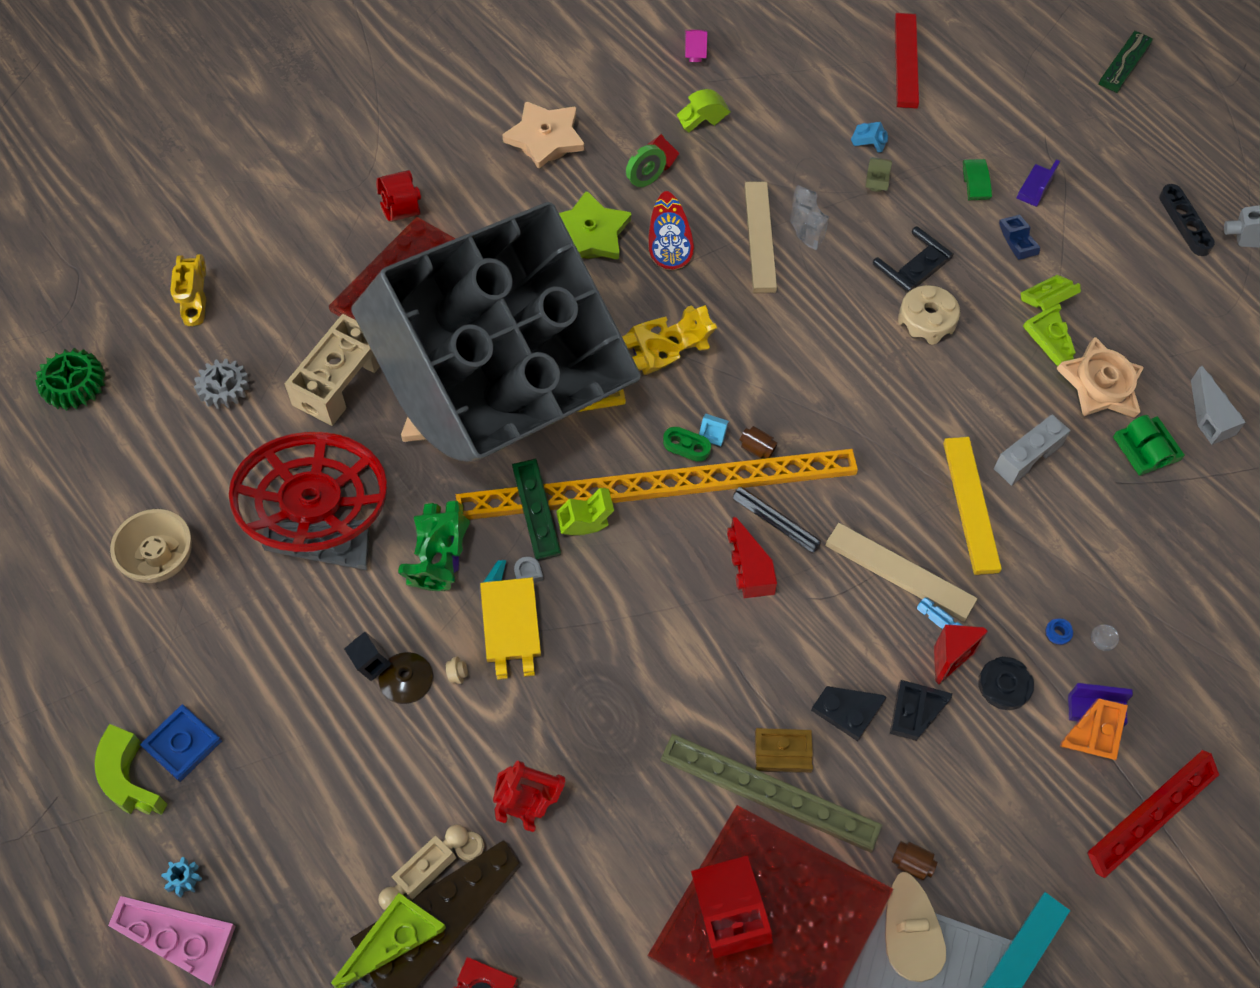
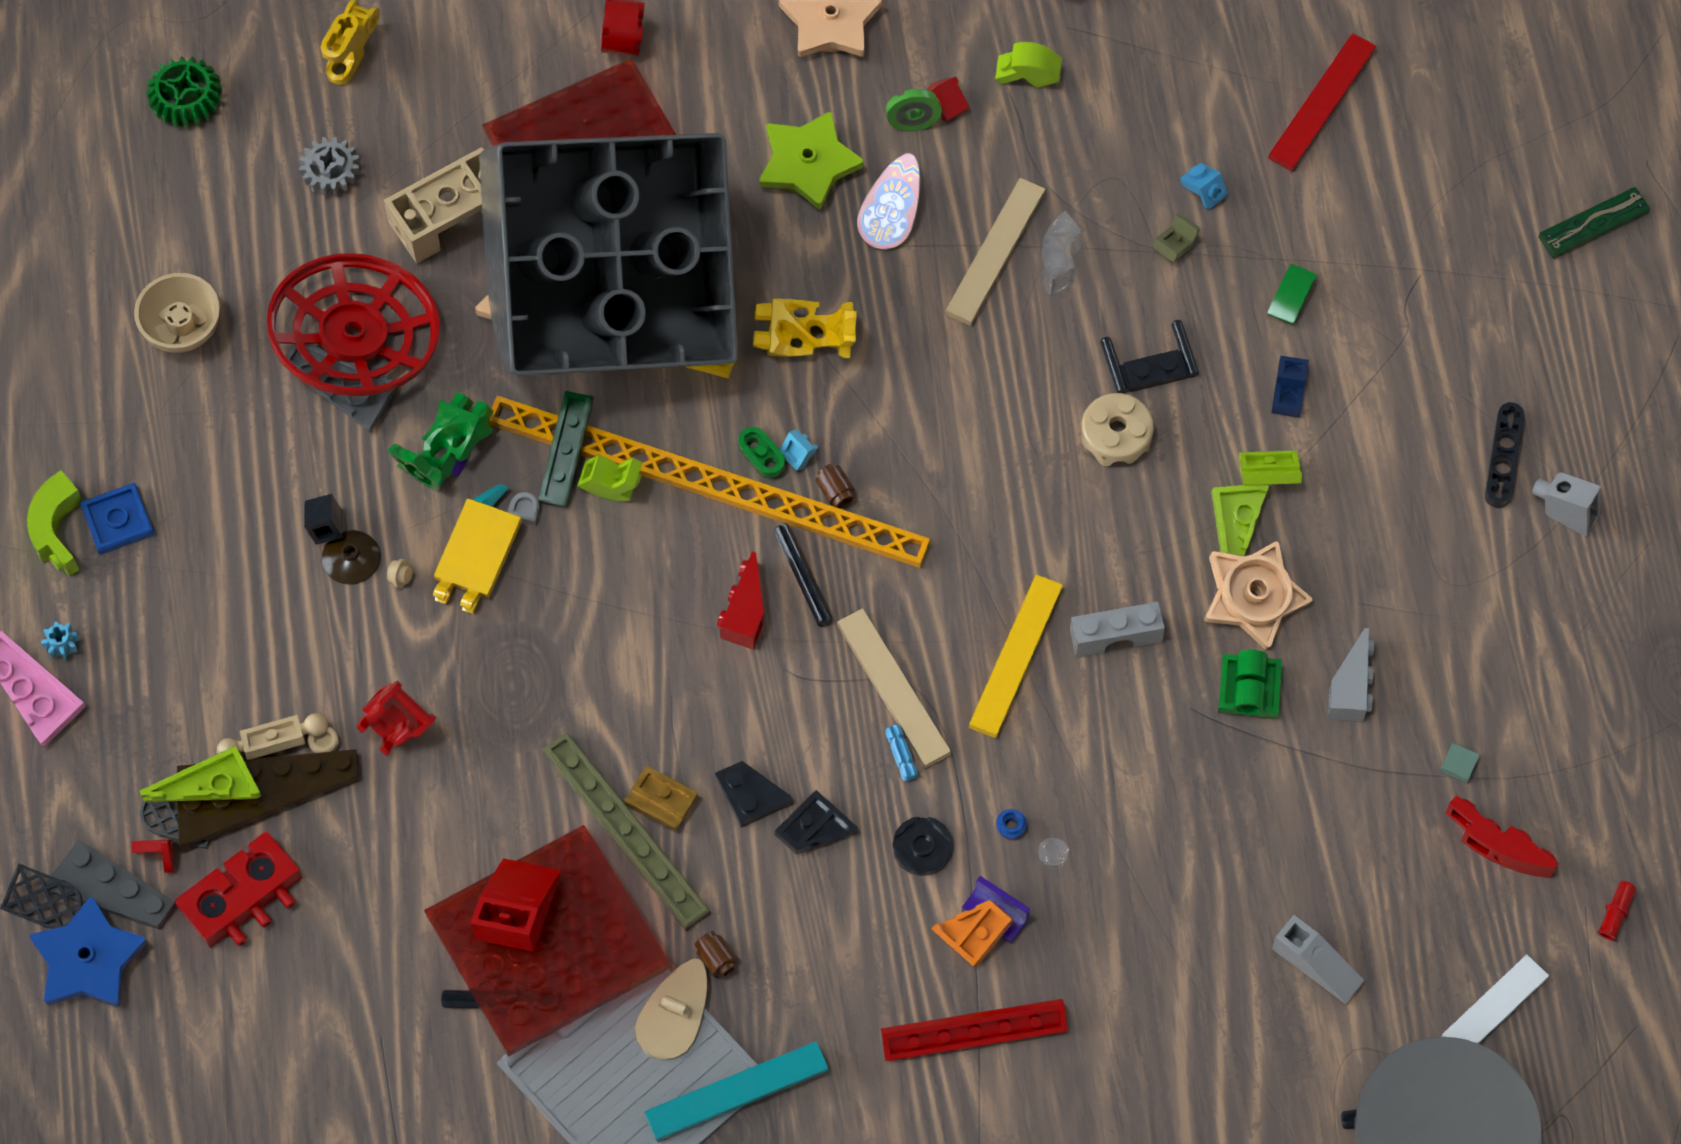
camera: 30 degrees right, 5 degrees up
(954, 648) = (885, 787): red slope -> none
(1037, 184) = (1360, 332): dark purple panel -> none

